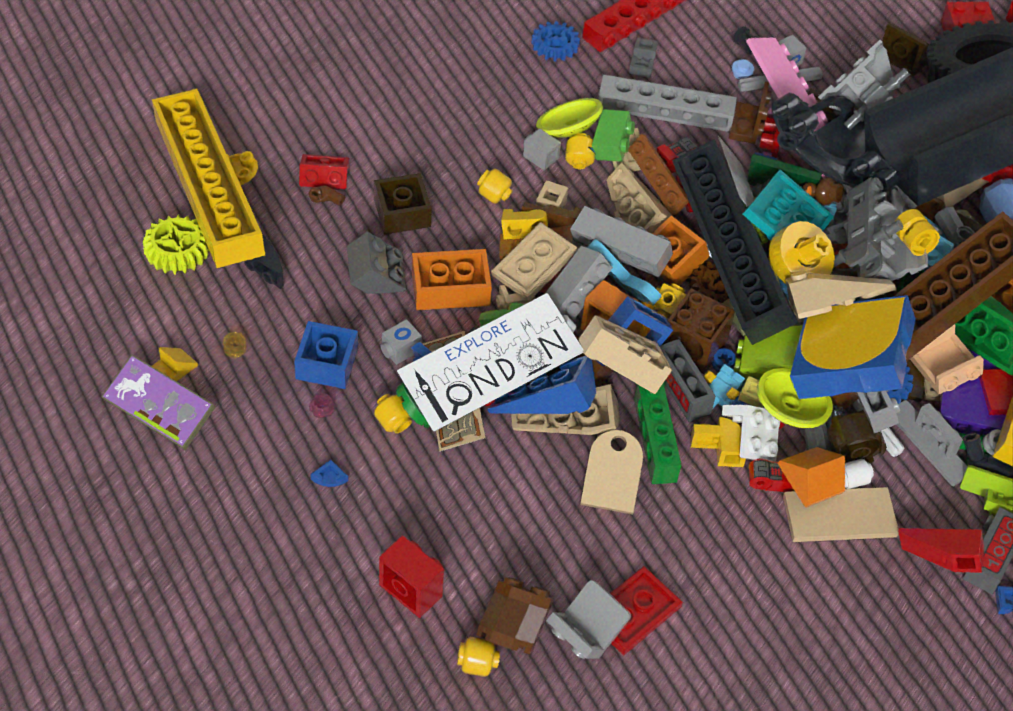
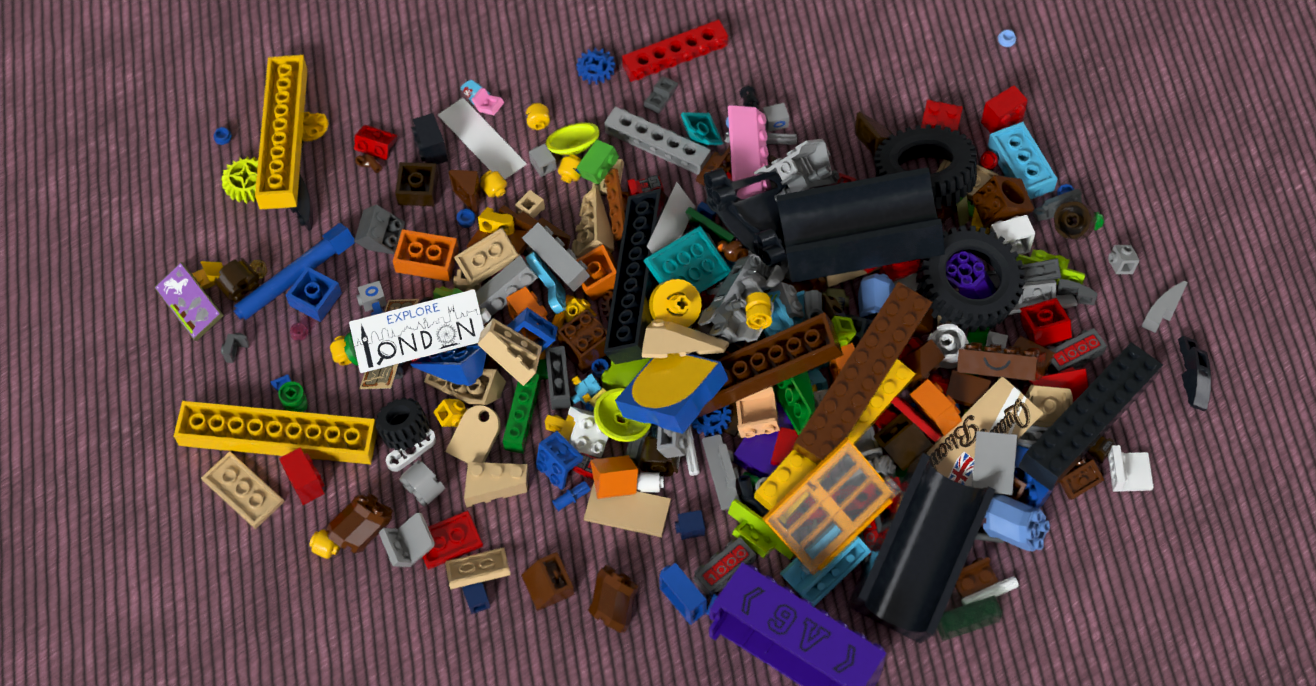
camera: 25 degrees right, 10 degrees up
(121, 203) = (222, 136): none -> blue plate
(217, 360) = (237, 279): none -> dark brown brick
(243, 434) = (231, 345): none -> dark grey bracket
(324, 290) = (334, 241): none -> blue brick
(329, 619) = (242, 490): none -> tan tile
(347, 531) = (275, 432): none -> yellow brick
(353, 485) = (293, 397): none -> green wheel
(397, 149) = (429, 140): none -> black brick
(419, 96) = (470, 88): none -> medium azure sticker
(445, 103) = (486, 103): none -> bright pink bracket
(451, 142) = (481, 138): none -> white sticker
(467, 194) = (466, 187): none -> reddish brown slope
(476, 231) = (466, 218): none -> blue tile
(513, 104) = (537, 116): none -> yellow head
(515, 479) = (402, 423): none -> black tyre
(534, 523) = (395, 454): none -> white beam
(563, 453) = (450, 412): none -> yellow brick
(574, 545) = (421, 483): none -> light grey brick
(662, 520) = (494, 481): none -> tan wedge
(694, 632) = (477, 568): none -> tan tile
(707, 669) = (476, 597): none -> dark blue brick
(713, 78) = (701, 128): none -> teal slope
(733, 474) = (556, 458): none -> blue bracket
(765, 515) = (571, 496): none -> blue axle
(793, 624) = (547, 581): none -> reddish brown slope
(888, 621) = (613, 598): none -> reddish brown brick
(929, 510) = (690, 525): none -> dark blue brick
(950, 548) = (691, 560): red slope -> none
(962, 602) = (682, 593): none -> blue window

